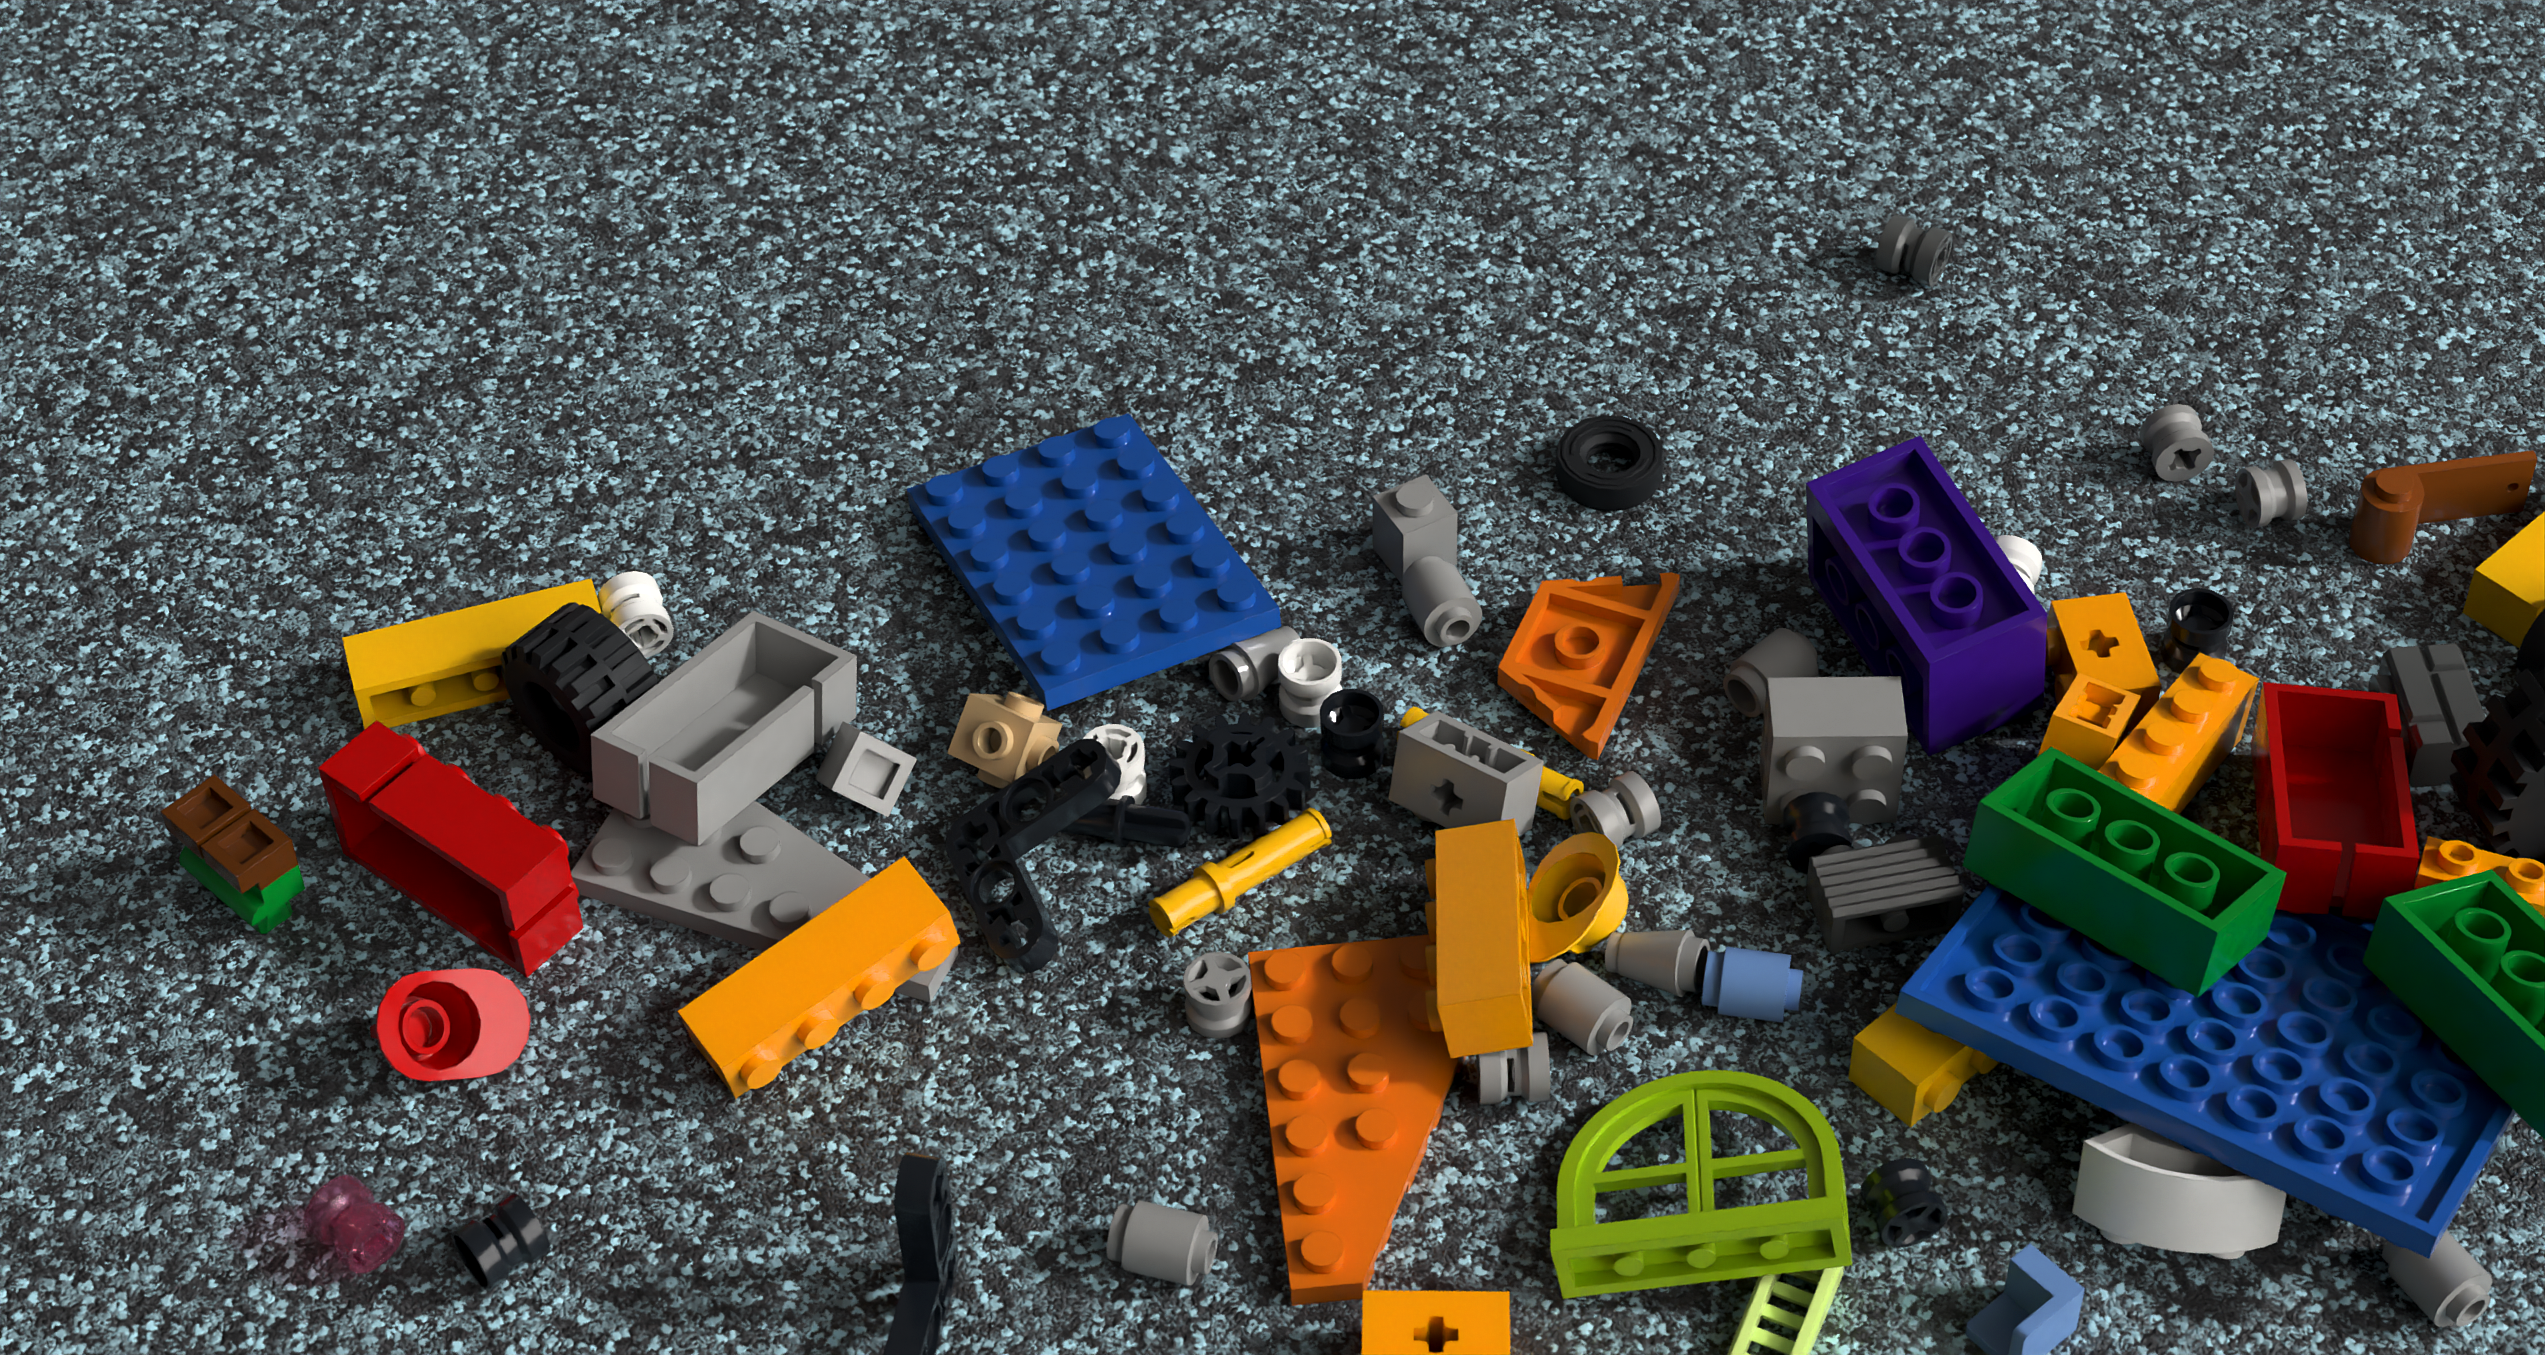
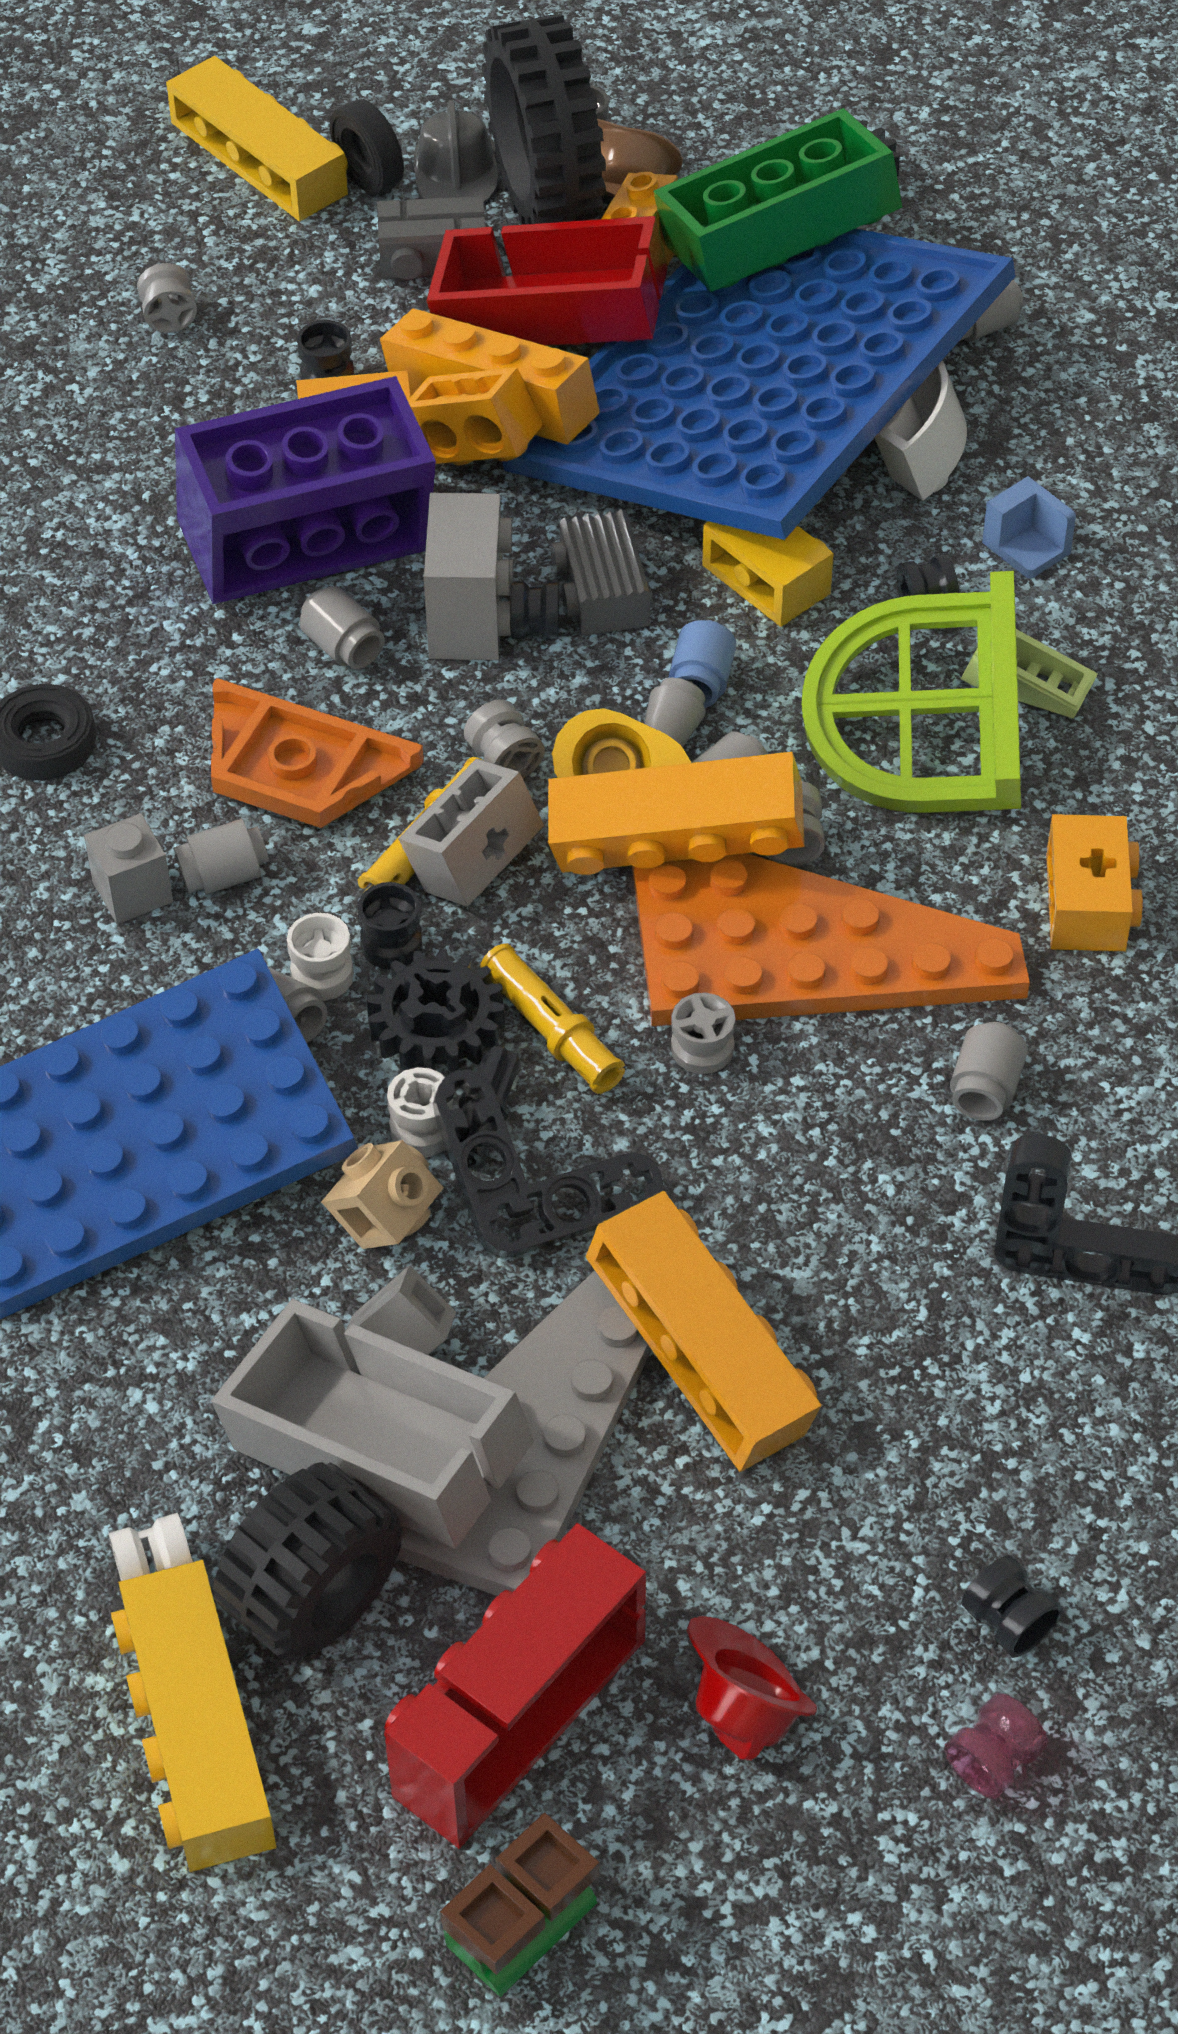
camera: 90 degrees left, 5 degrees up
(2124, 871) = (649, 385): green brick -> none
(2176, 442) = (94, 346): light grey wheel -> none
(2409, 495) = (205, 216): dark orange door -> none

